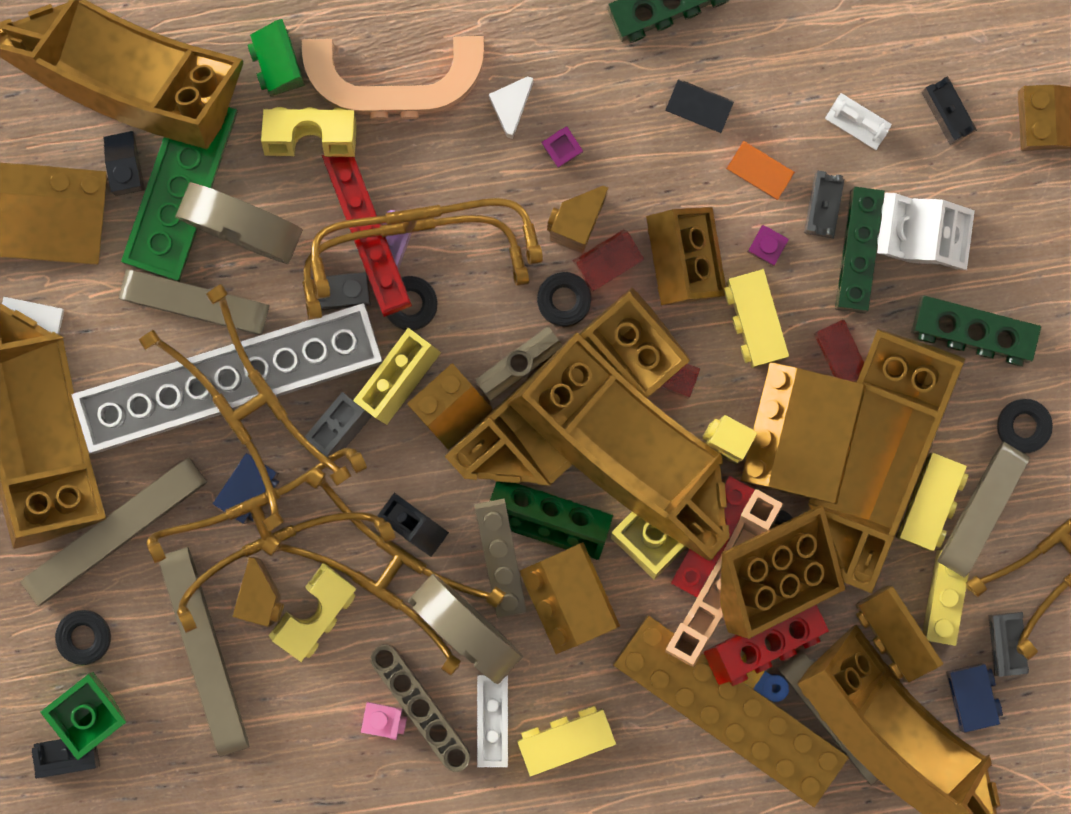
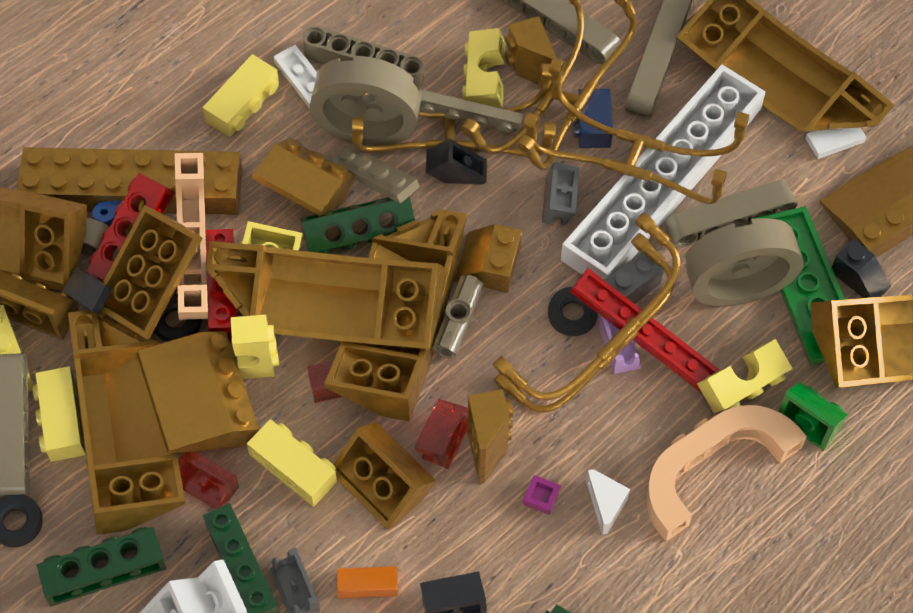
camera: 150 degrees right, 25 degrees down
(356, 563) = (458, 108): none -> dark tan plate
(383, 721) = (385, 36): bright pink bracket -> none
(397, 376) = (543, 249): light yellow brick -> none
(558, 281) = (456, 369): black tyre -> none
(768, 245) = (321, 527): magenta plate -> none
(842, 604) = (87, 290): none -> black tile

